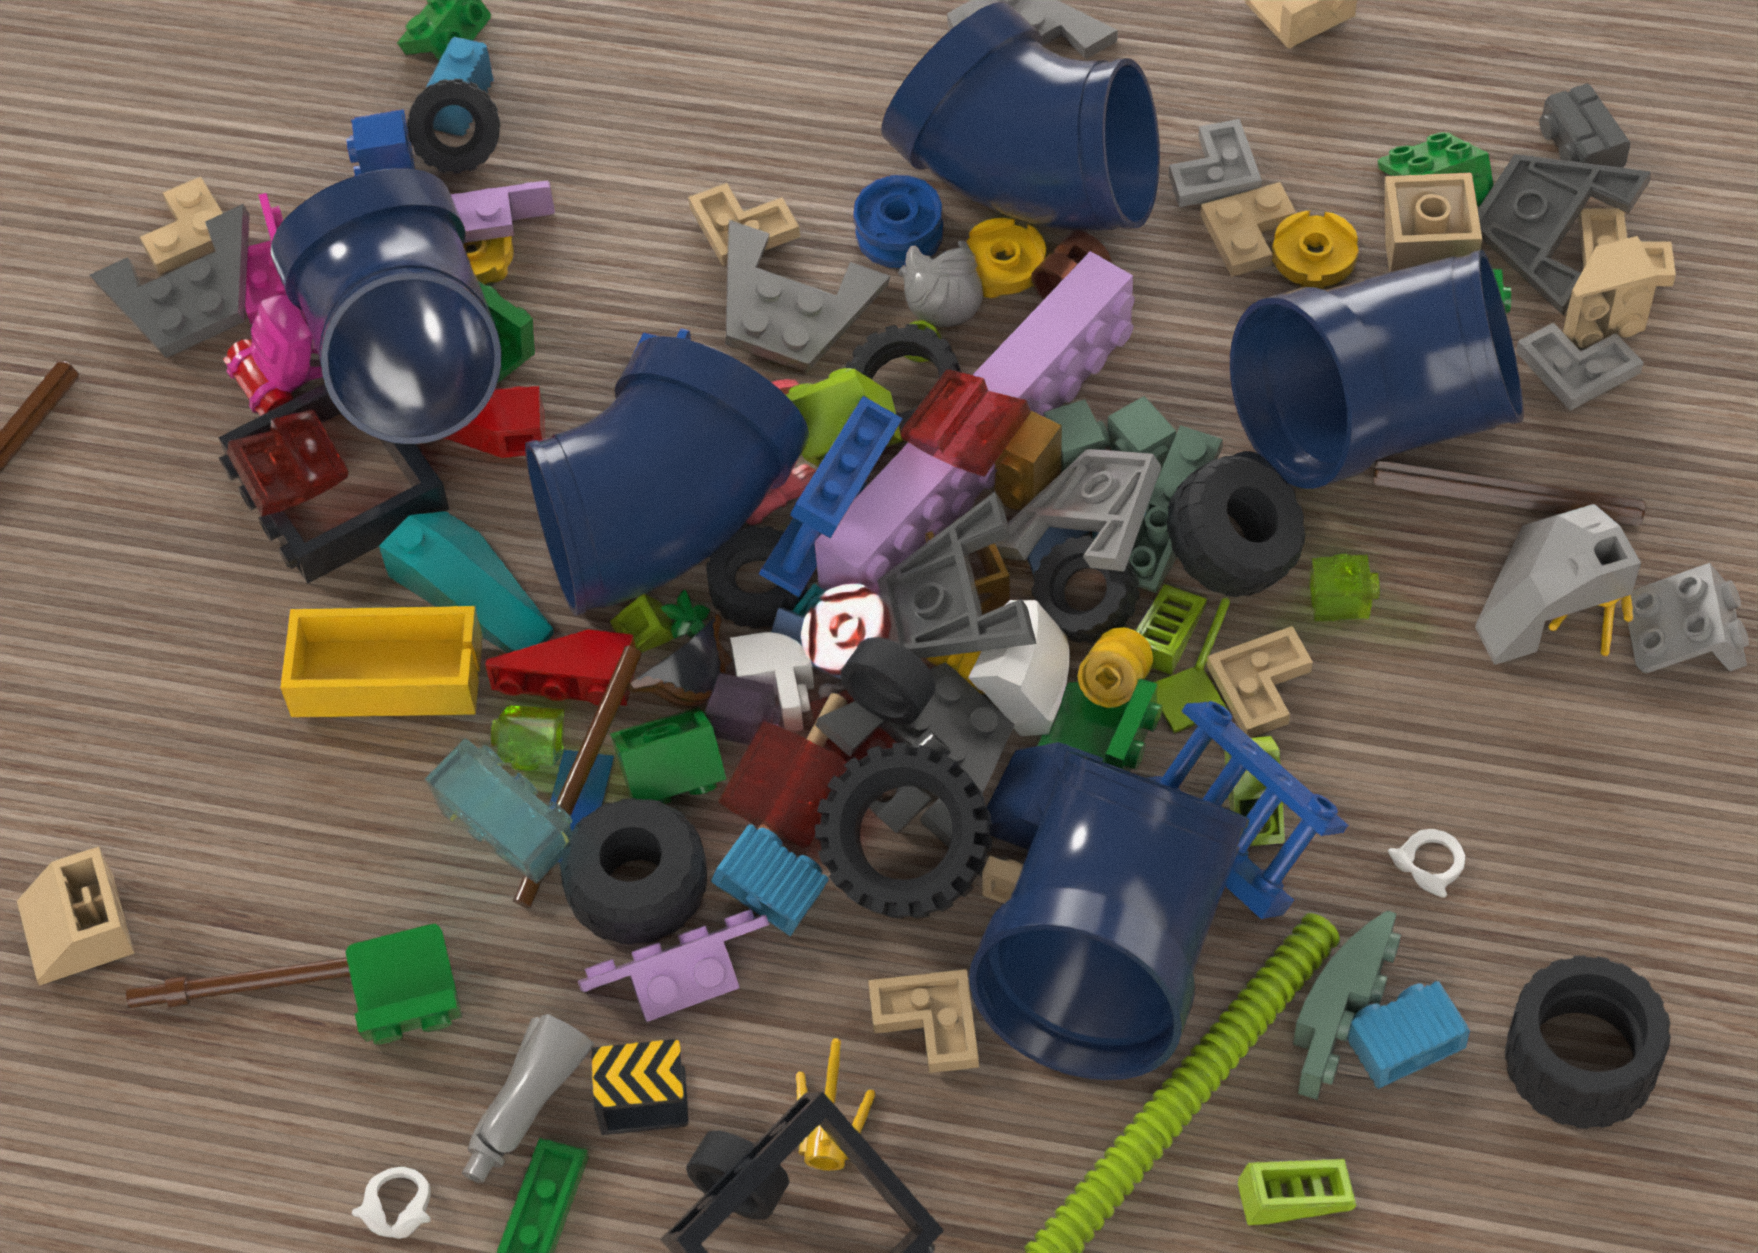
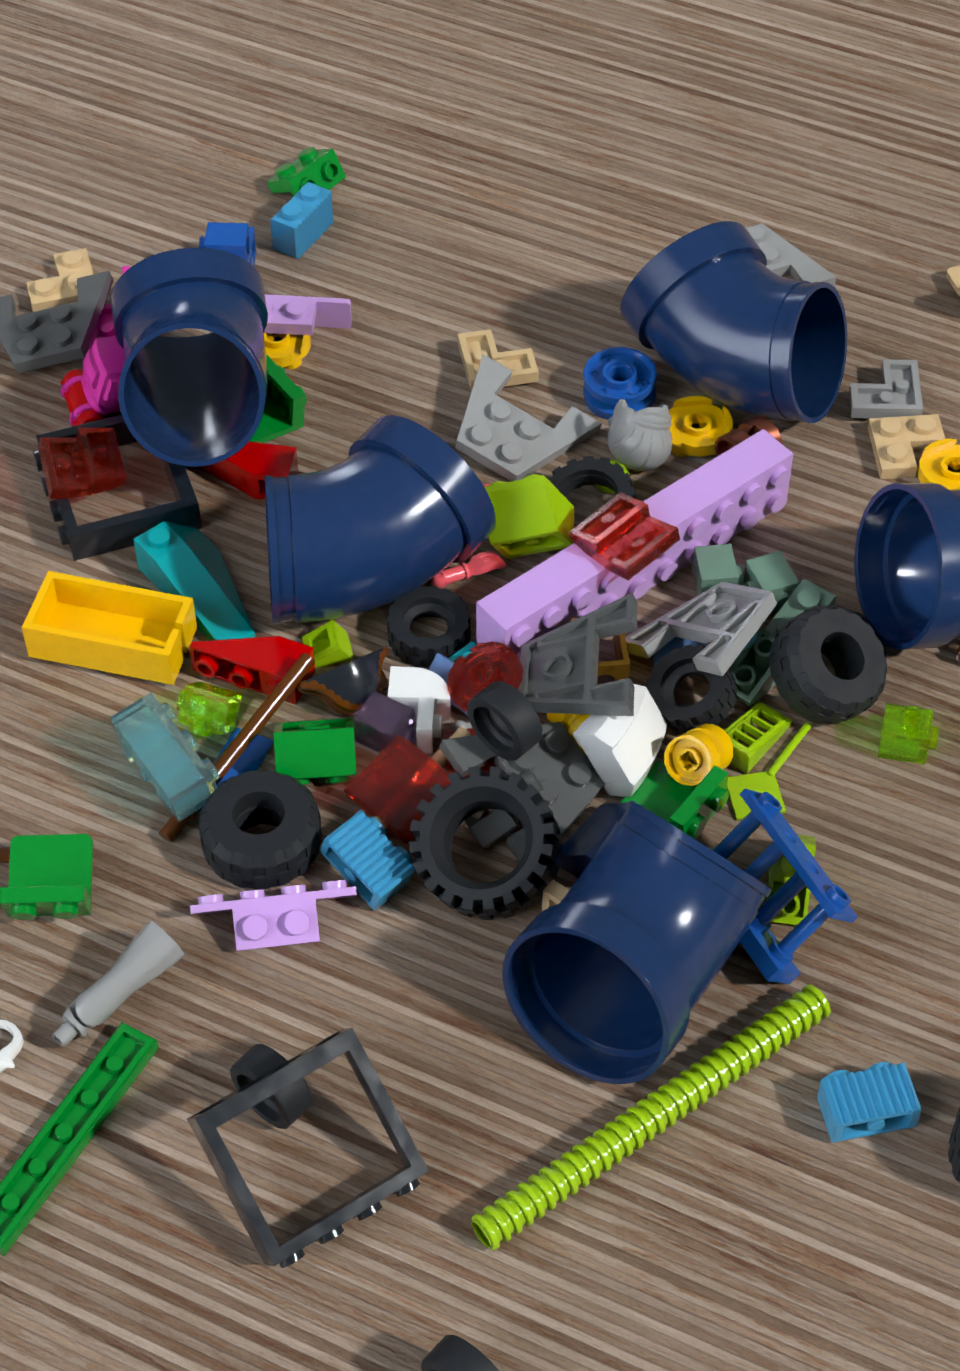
camera: 10 degrees right, 5 degrees down
(431, 148) = (263, 251): black tyre -> none
(639, 1087) = (213, 999): piece -> none
(687, 619) = (361, 643): green plant -> none
(818, 1147) = (344, 1081): yellow plant -> none
(830, 494) = (497, 565): blue fence -> none
(932, 1002) = (475, 989): tan plate -> none
(1029, 461) = (671, 580): pearl gold piece -> none
(1249, 677) = (812, 784): tan plate -> none
(1272, 1207) = (736, 1223): lime slope -> none
(1338, 994) = (825, 1048): sand green slope -> none
(1429, 882) = (923, 986): white piece -> none

